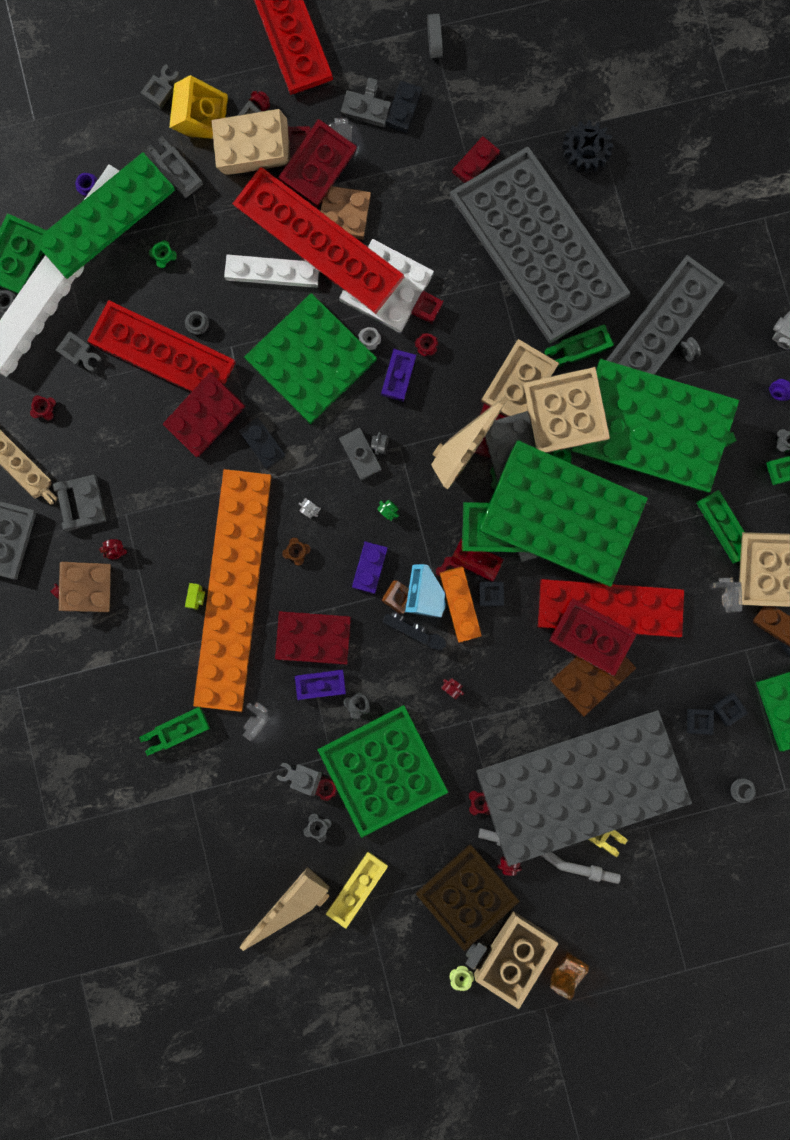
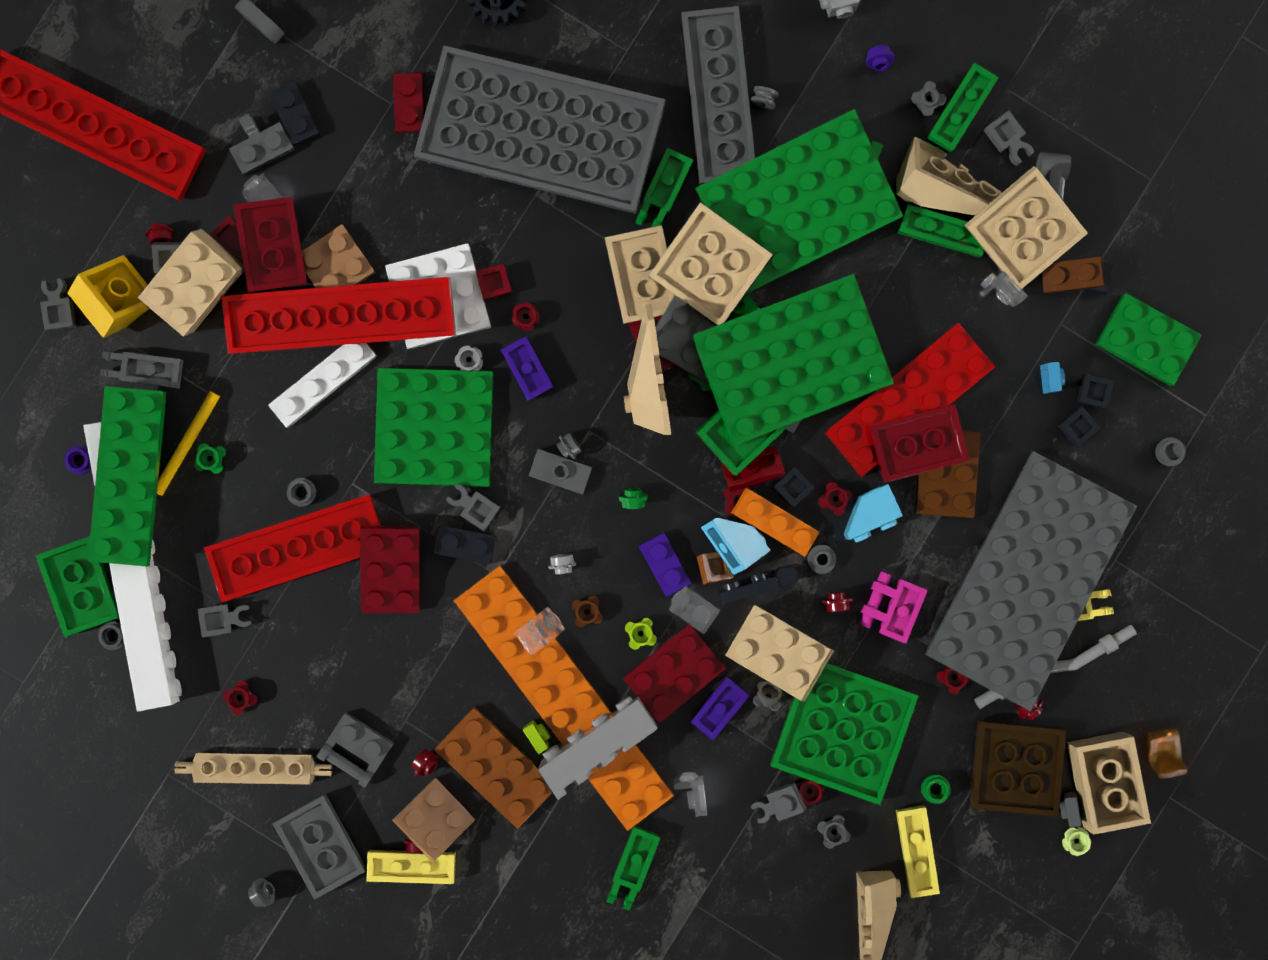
camera: 35 degrees left, 5 degrees up
(43, 603) = (410, 867): none -> light yellow plate
(152, 593) = (495, 767): none -> dark orange piece
(157, 232) = (186, 442): none -> yellow bar
(223, 633) = (596, 745): none -> light grey wedge
(257, 534) = (540, 631): none -> clear bracket
(290, 428) = (477, 509): none -> dark grey plate
(315, 588) = (636, 640): none -> lime plate
(361, 609) = (694, 609): none -> clear bracket
(388, 684) = (779, 653): none -> tan brick
(404, 869) = (941, 795): none -> green plate
(467, 661) = (812, 559): none -> dark grey plate
(485, 731) = (901, 611): none -> dark pink plate
(516, 627) = (843, 498): none -> dark red plate
(526, 653) = (871, 511): none -> medium azure slope
(711, 676) = (1052, 377): none -> dark azure plate
(747, 493) = (938, 184): none -> tan wedge

